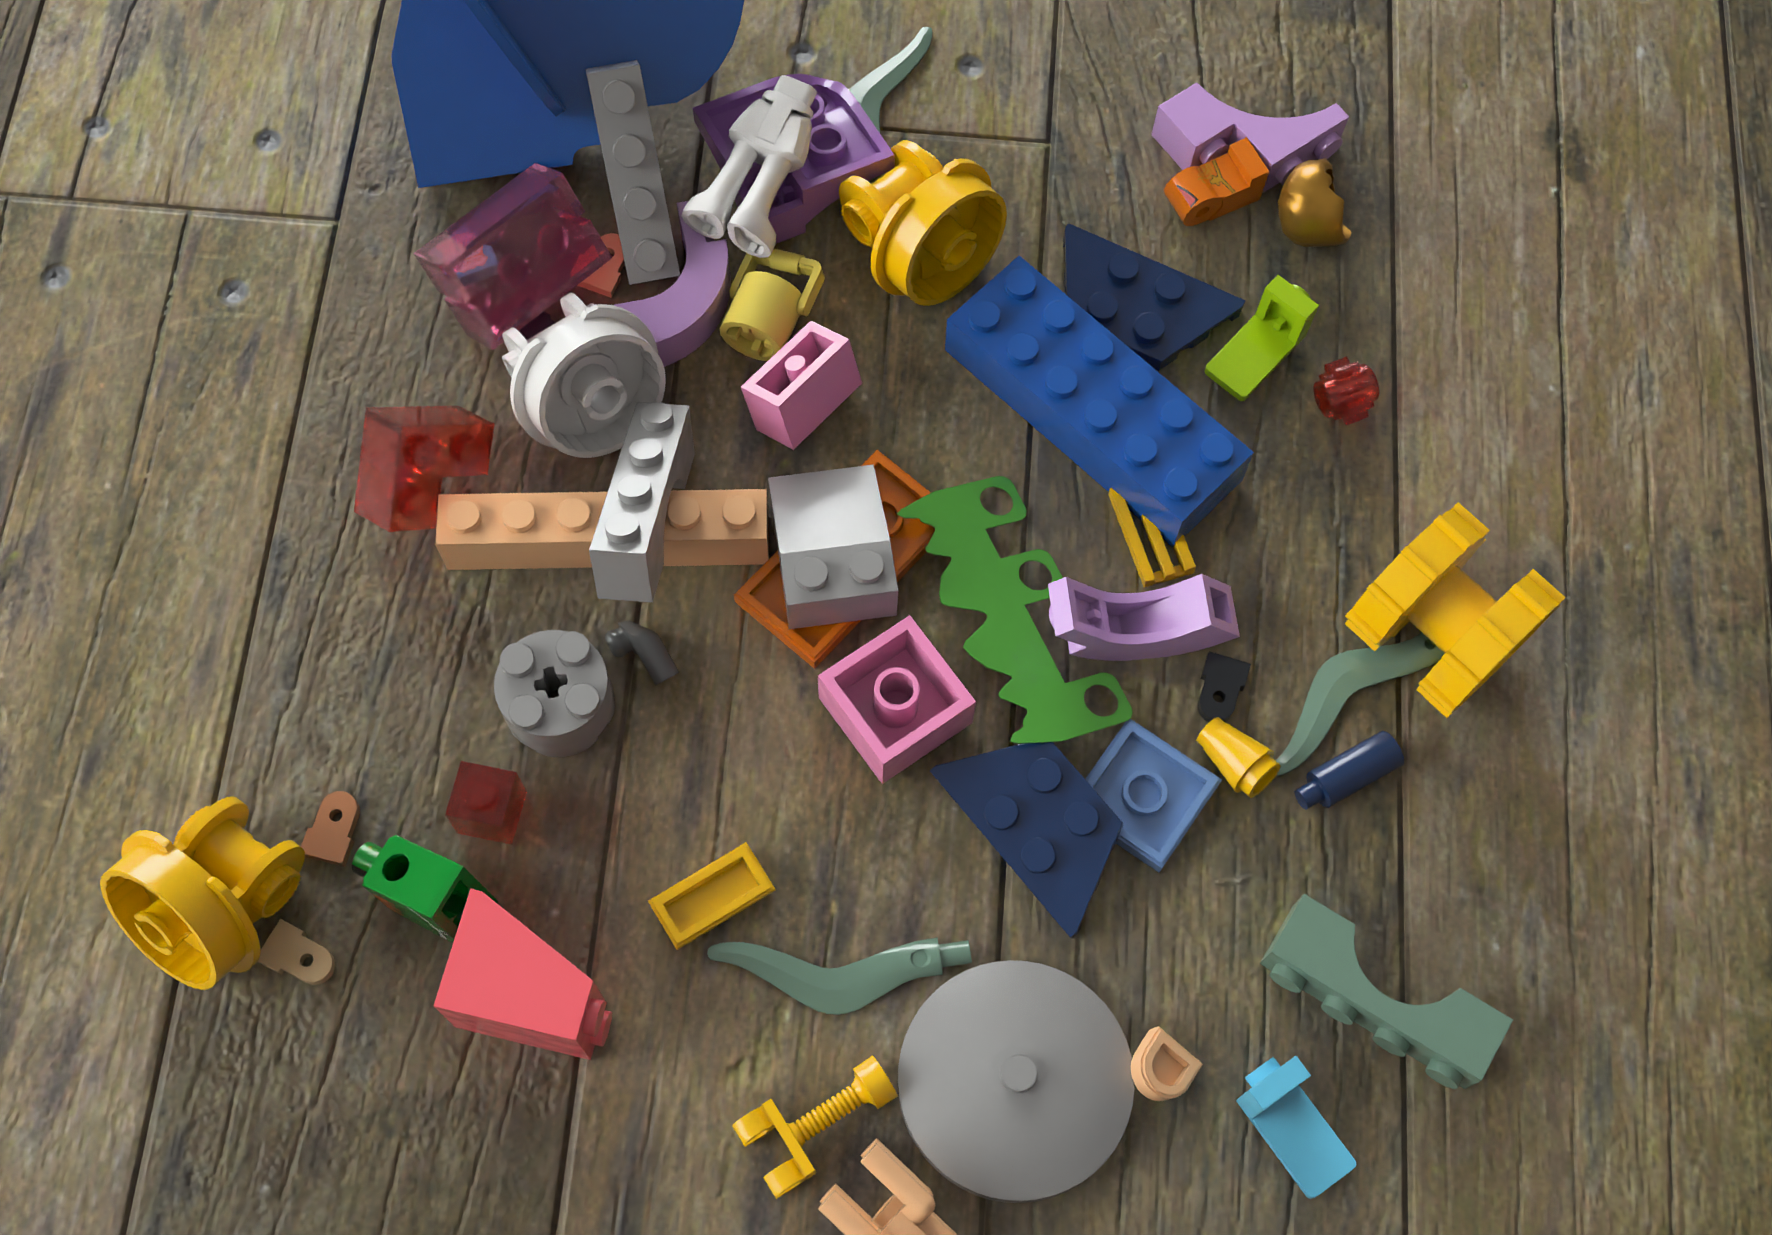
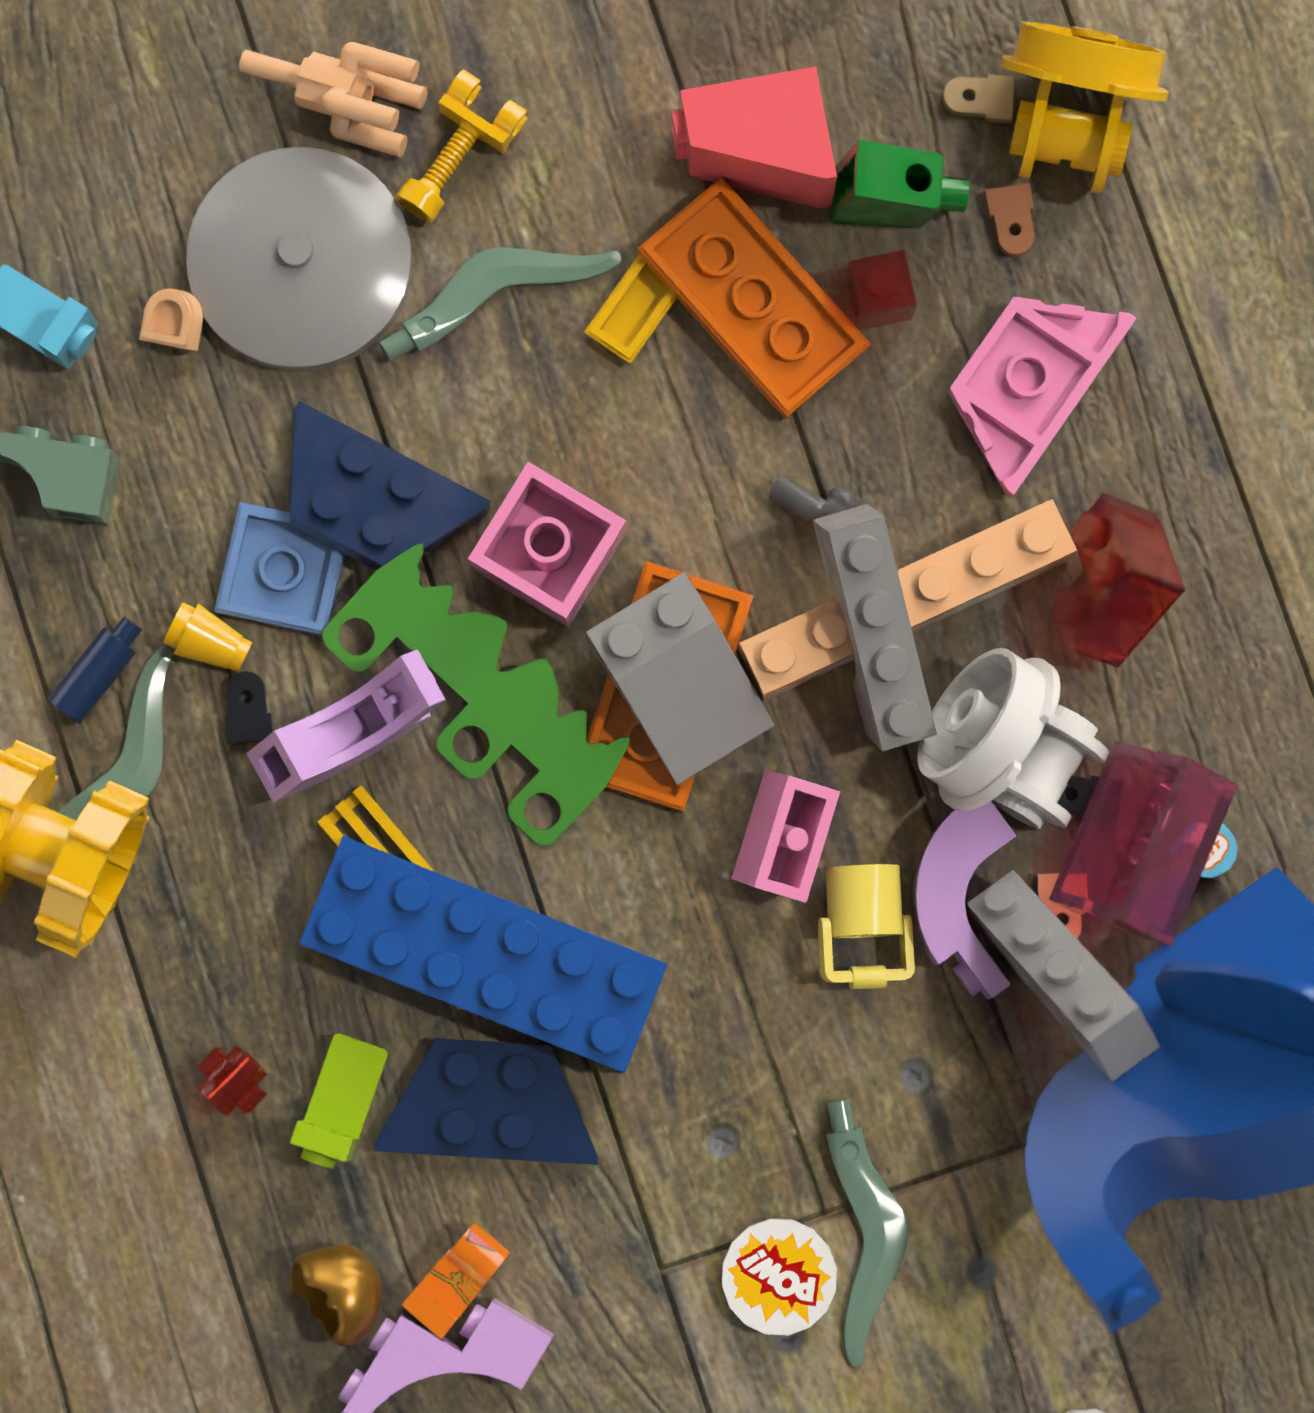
camera: 160 degrees right, 15 degrees up
(395, 673) = (1031, 379): none -> bright pink wing
(550, 663) = (872, 385): light grey brick -> none
(605, 855) = (753, 298): none -> orange tile
(768, 132) = (942, 1084): white piece -> none
(840, 147) = (923, 1112): medium lavender slope -> none
(925, 223) = (715, 1054): yellow piece -> none
(959, 100) = (779, 1276): none -> tile

